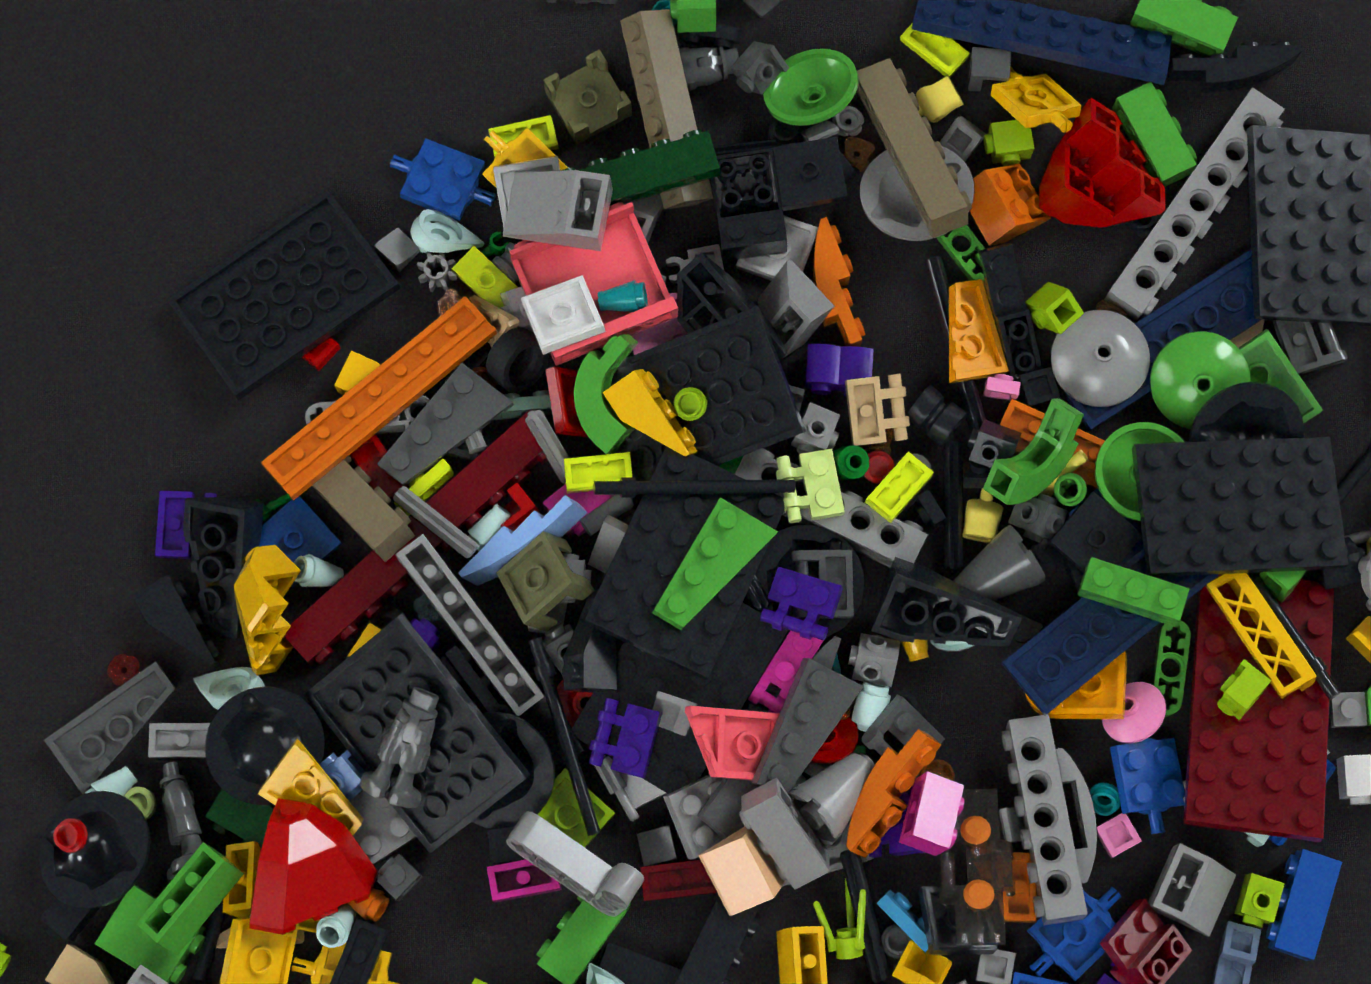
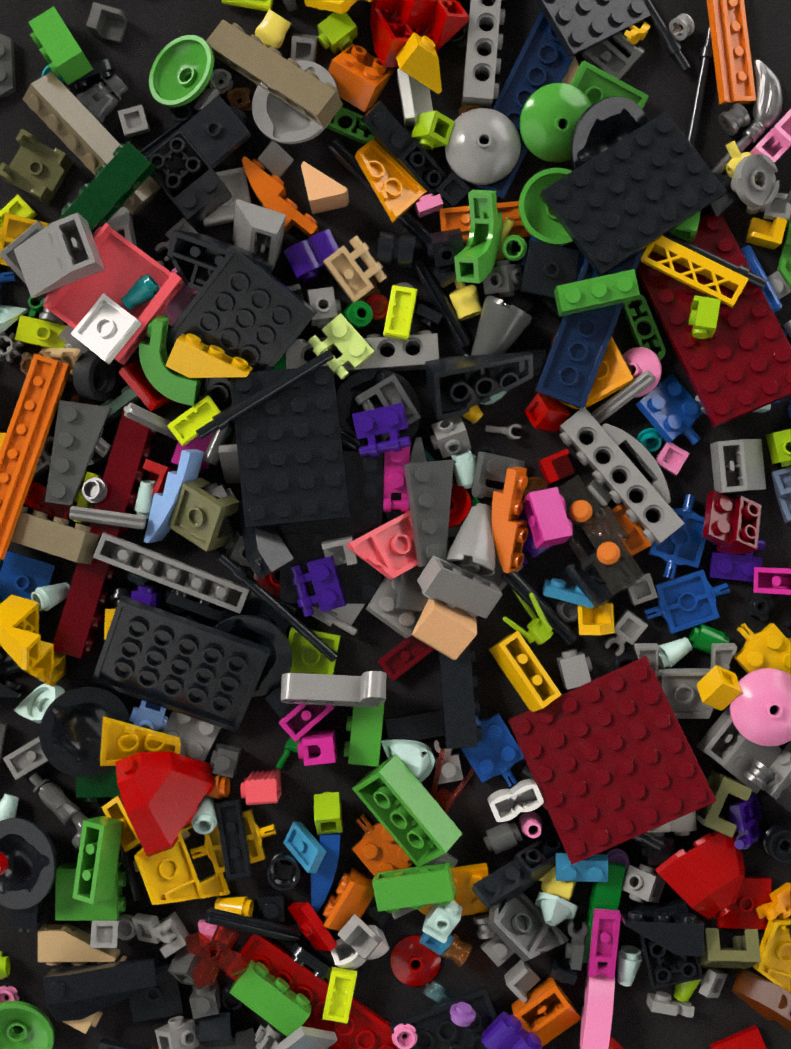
camera: 30 degrees left, 10 degrees up
(143, 799) = (30, 809): yellowish green tile -> none
(406, 745) = (179, 678): dark grey piece -> none
(422, 931) = (262, 787): none -> coral brick
(439, 483) = (94, 490): none -> flat silver plate
(483, 906) = (291, 746): none -> green hand
(521, 929) = (318, 747): none -> dark pink brick
(656, 846) = (380, 640): dark grey slope -> none
(690, 404) = (228, 338): lime plate -> none
(718, 553) = (307, 432): bright green wing -> none
(726, 109) = (133, 121): none -> light grey plate
(758, 67) = (137, 78): dark grey brick -> none
(858, 240) = (275, 159): none -> light grey slope
(890, 304) = (322, 191): none -> light nougat slope
(941, 690) = (504, 430): none -> light grey hand
(978, 766) = (556, 466): none -> red panel
(1001, 698) = (546, 413): none -> red panel
(1056, 258) = (414, 98): none -> white panel
(1082, 227) = (421, 61): none -> yellow slope
(1100, 730) = (623, 396): none -> light grey axle
(1338, 674) = (757, 269): none -> blue axle
(1346, 334) = (637, 34): none -> yellow piece

